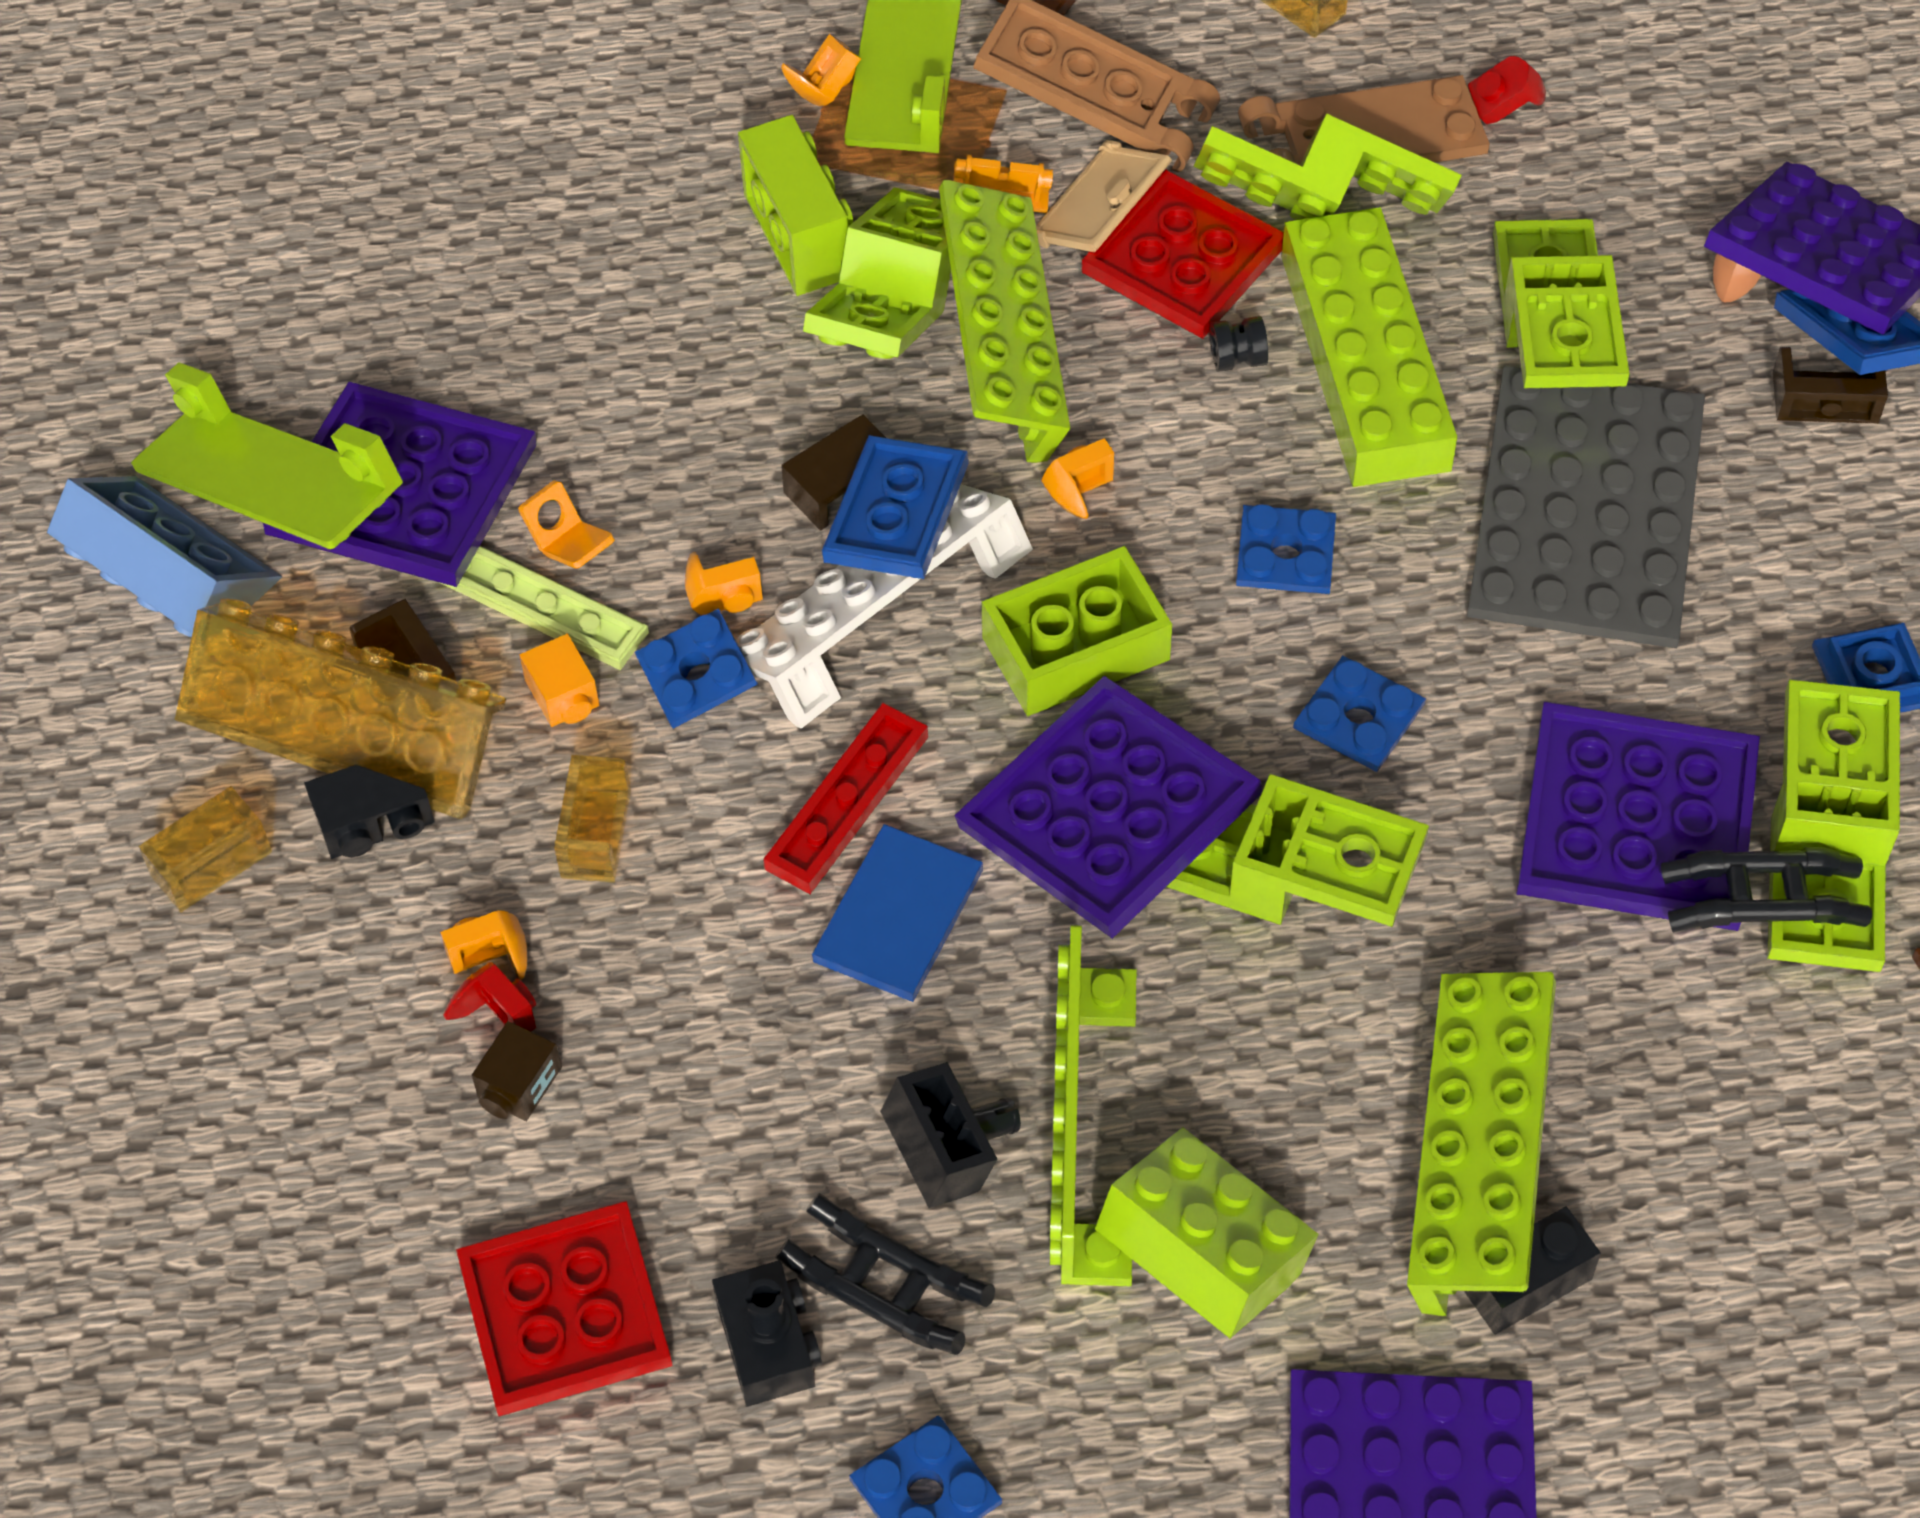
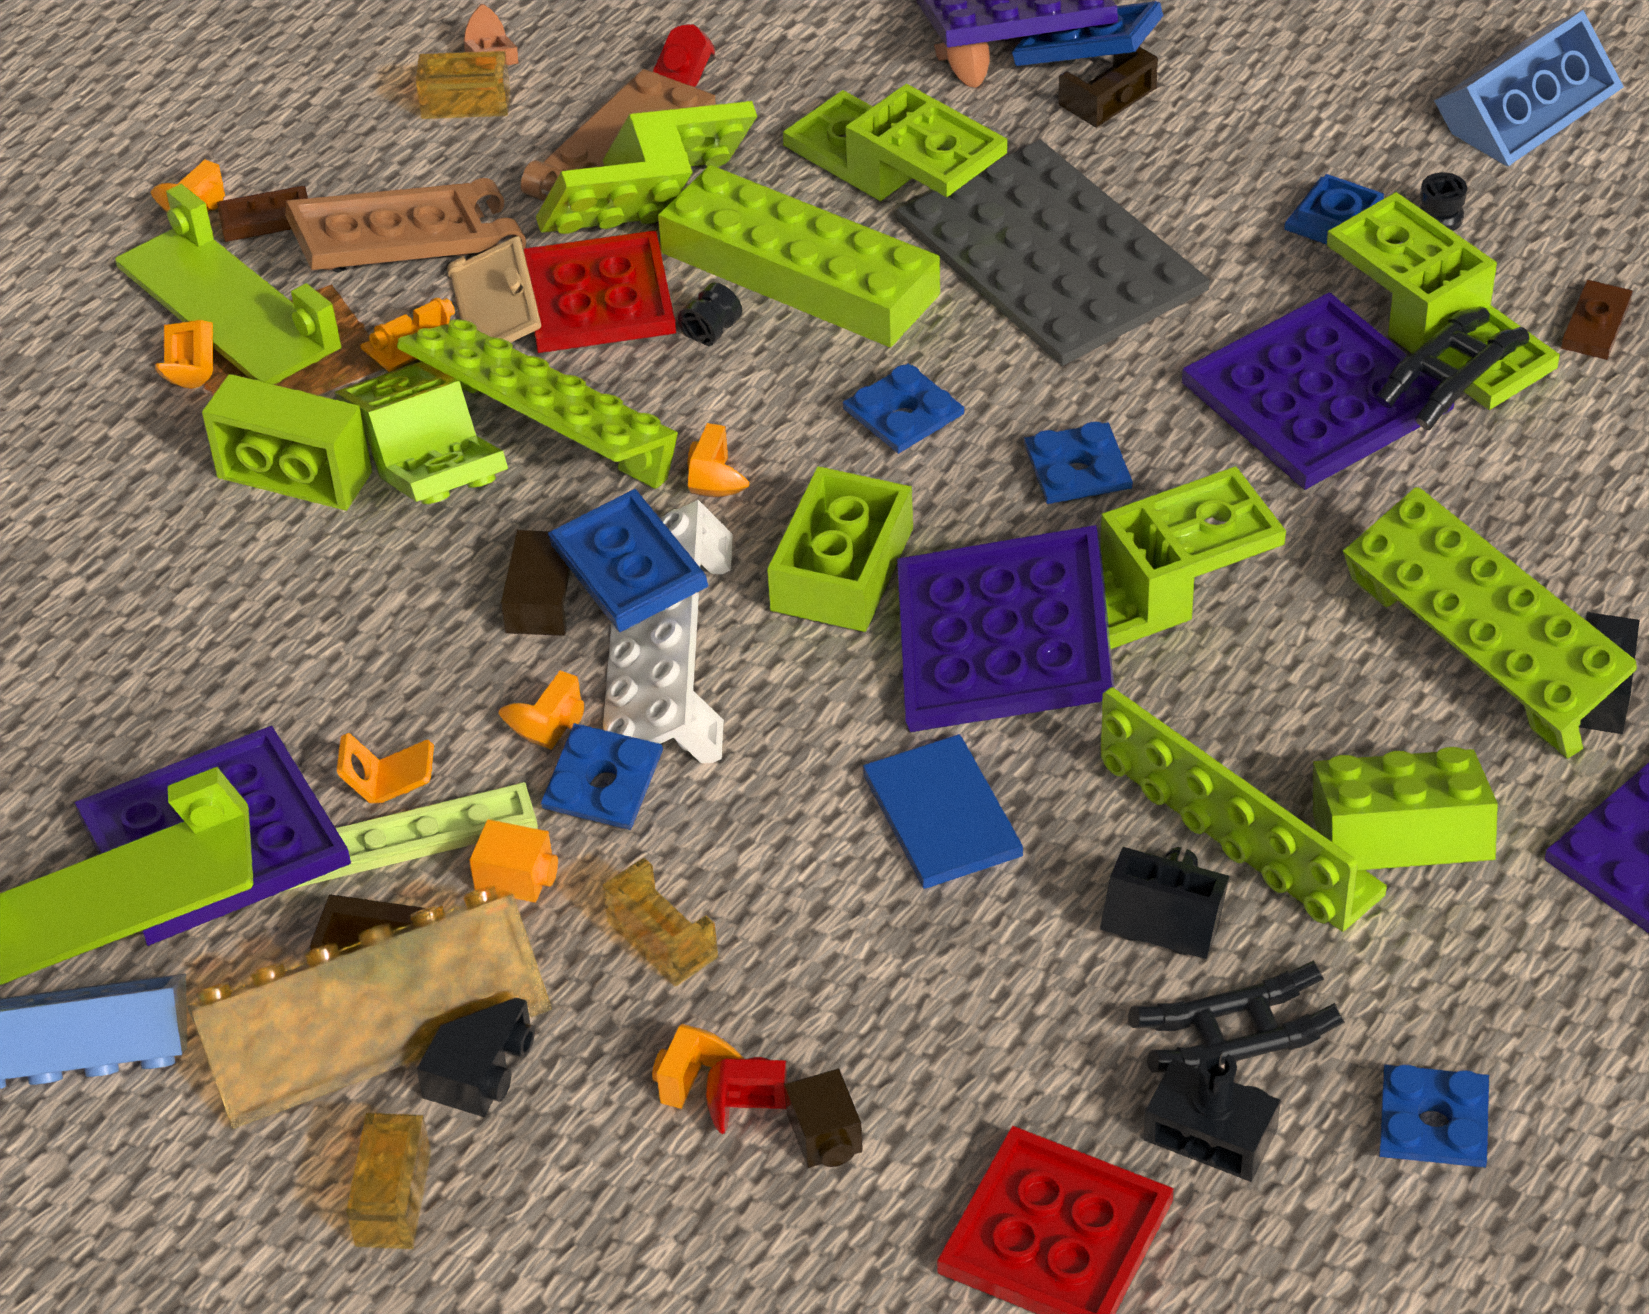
camera: 45 degrees left, 10 degrees down
(846, 798) = (816, 772): red plate -> none

